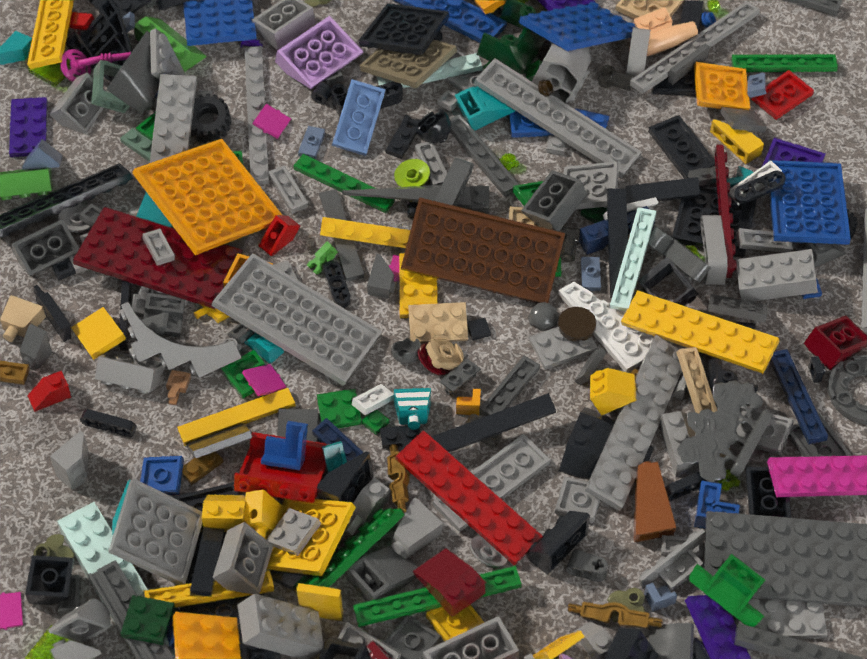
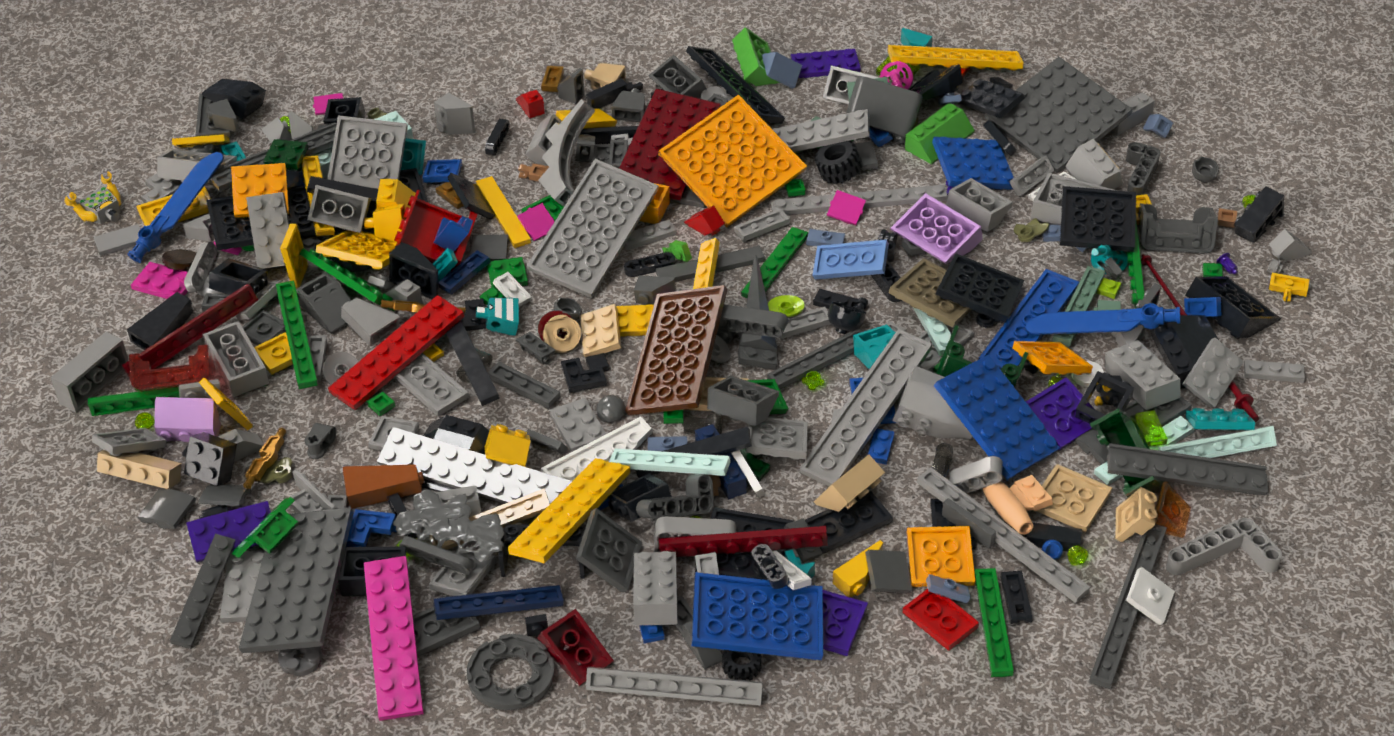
camera: 90 degrees right, 10 degrees down
(75, 295) = (629, 106): none -> dark grey torso
(158, 247) = (667, 133): light grey plate -> none
(163, 56) = (891, 121): light grey plate -> none
(293, 531) = (367, 238): light grey plate -> none
(451, 581) = (300, 333): dark red slope -> none
(469, 405) = (508, 358): light orange panel -> none
(502, 342) = (581, 380): none -> black plate
(535, 513) = (381, 404): none -> green plate
(545, 88) = (895, 385): dark brown plate -> none
(559, 540) = (344, 416): black slope -> none
(577, 323) = (594, 427): dark brown tile -> none
(651, 136) = (851, 485): none -> tan slope
(659, 597) = (280, 488): sand blue panel -> none
(664, 190) = (775, 498): black tile -> none
(757, 46) = (1016, 596): none -> black plate

